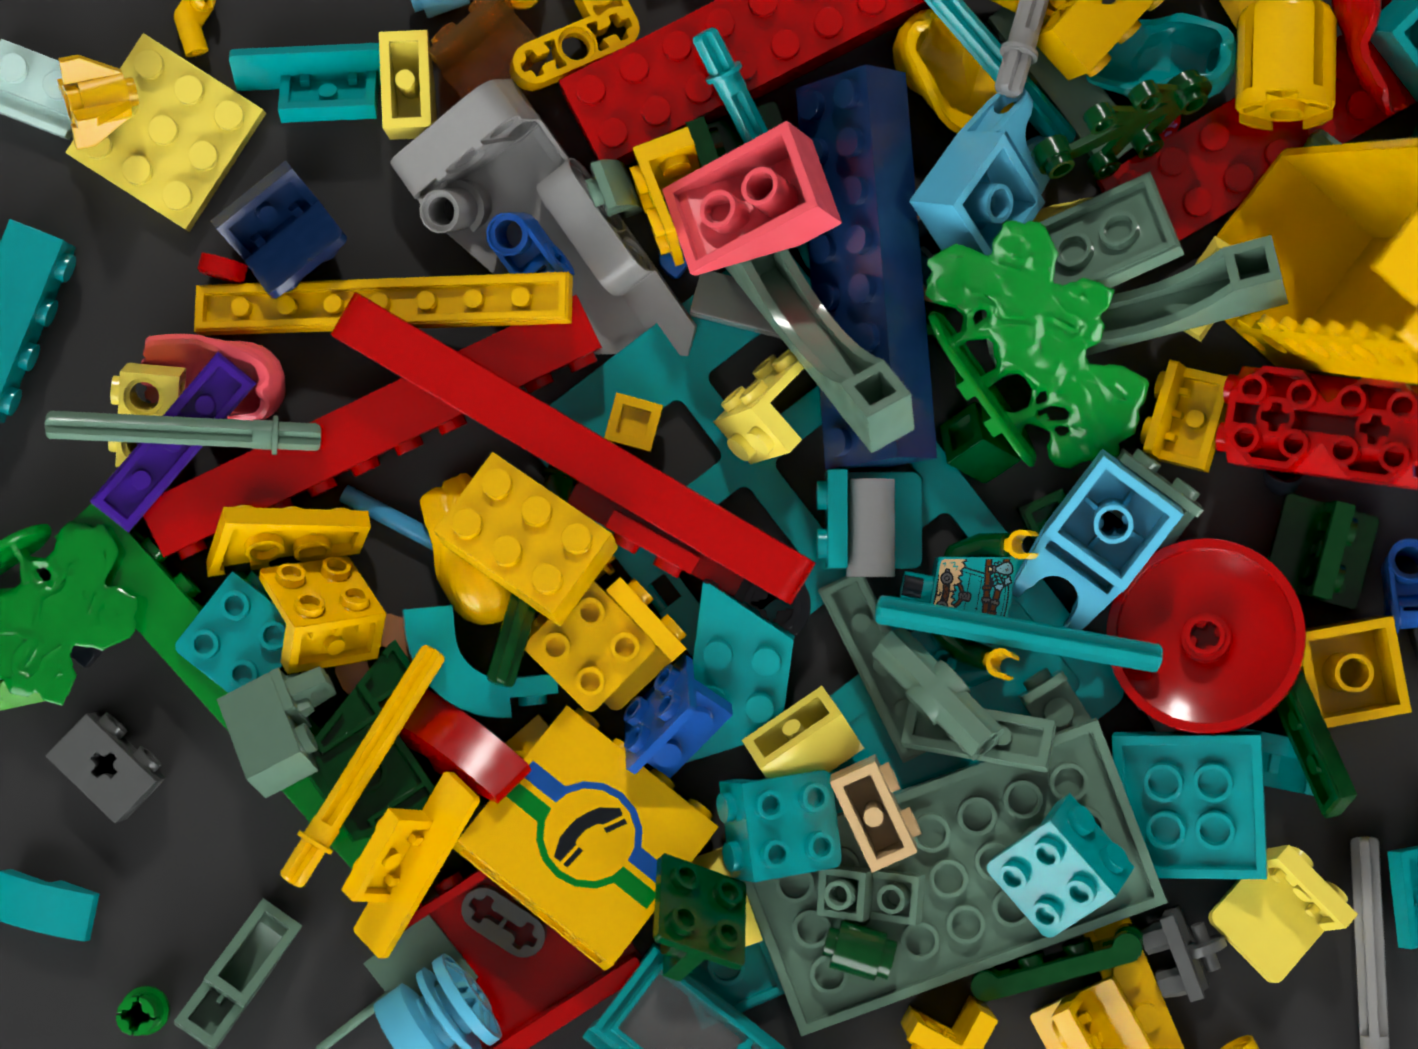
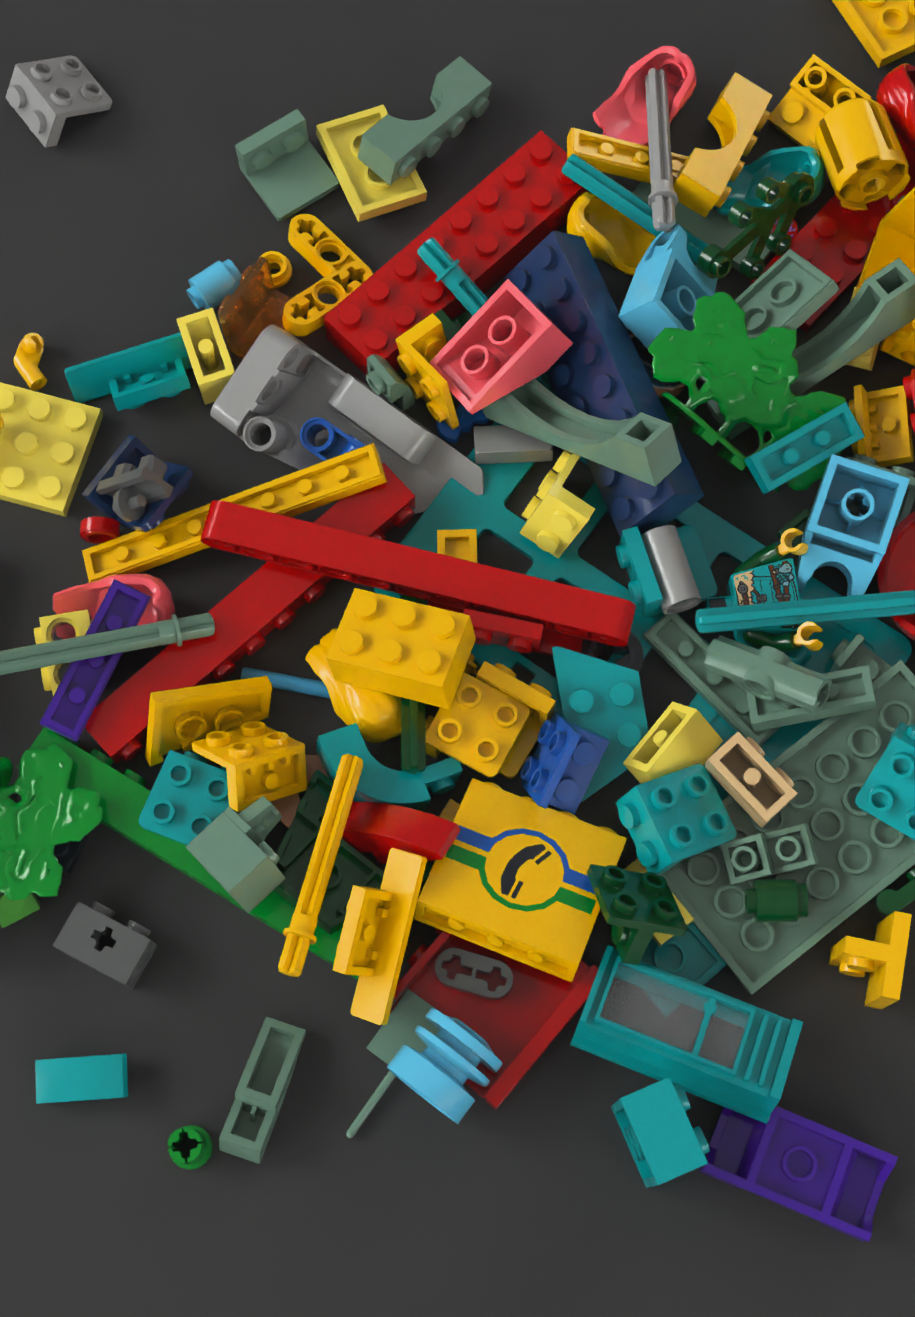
camera: 10 degrees left, 15 degrees down
(272, 238) = (136, 487): none -> dark grey hips
(973, 448) = (731, 491): dark green panel -> none
(1076, 433) = (804, 448): none -> teal plate

